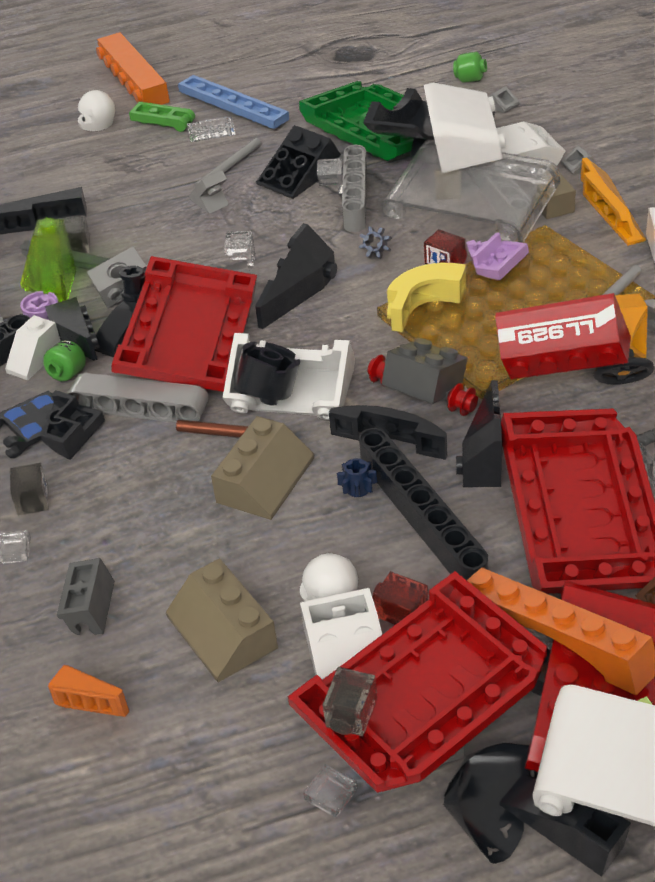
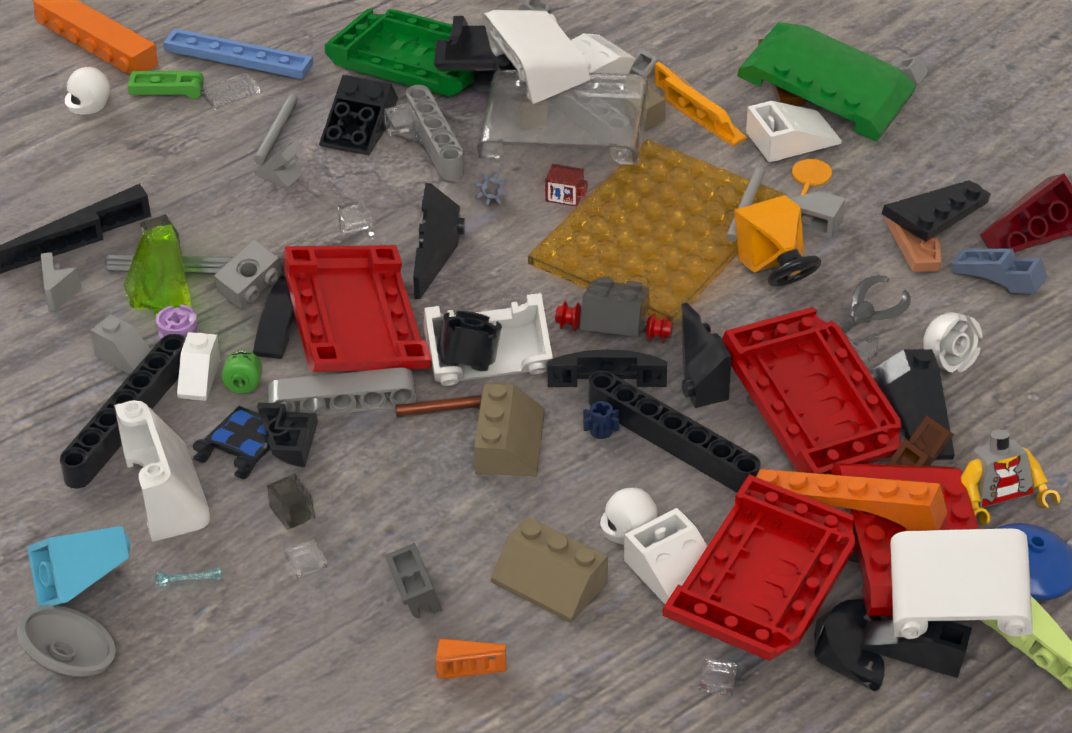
camera: 25 degrees left, 0 degrees up
(74, 325) = (233, 334): black slope -> none
(132, 282) = (273, 278): black bush -> none
(350, 701) = (723, 594): clear smoke brick -> none
(398, 597) = (702, 511): clear red brick -> none
(423, 285) = (571, 223): light yellow arch -> none
(496, 258) = (622, 182): lavender slope -> none
(563, 336) = (738, 251): slope -> none

